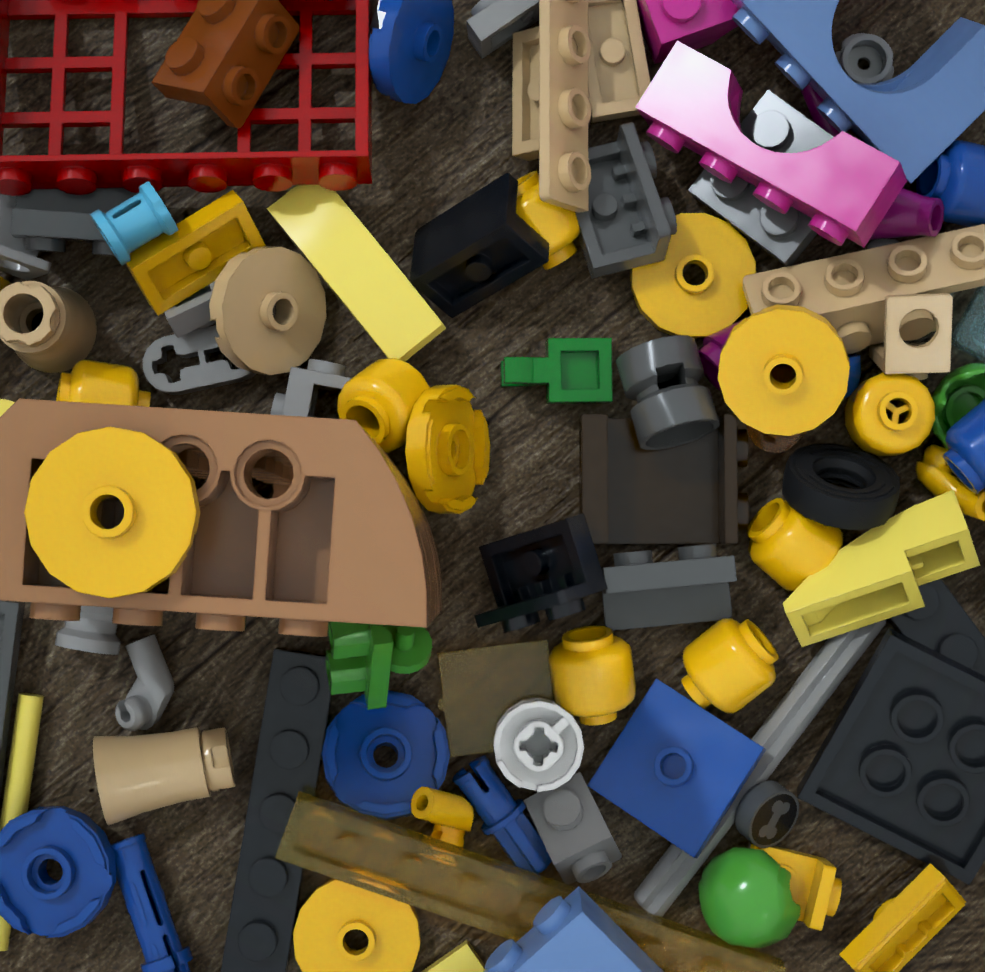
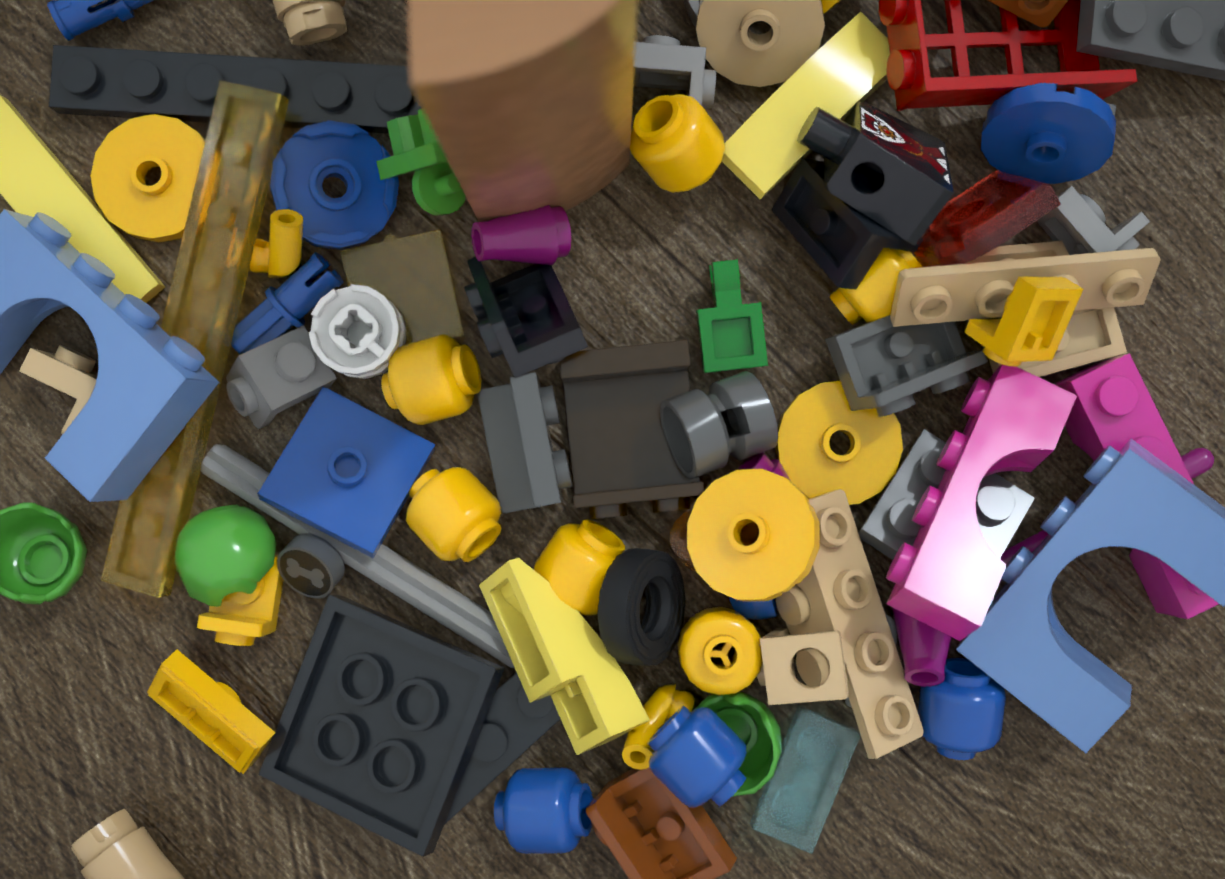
camera: 90 degrees right, 0 degrees up
(432, 204) = (882, 167): none -> black torso
(446, 449) = (639, 209): yellow plate -> none
(462, 567) = (524, 237): none -> magenta cone
(490, 112) = (984, 218): none -> clear red tile
(605, 79) = (1031, 321): none -> yellow bracket
(870, 48) = (1087, 595): light grey plate -> none

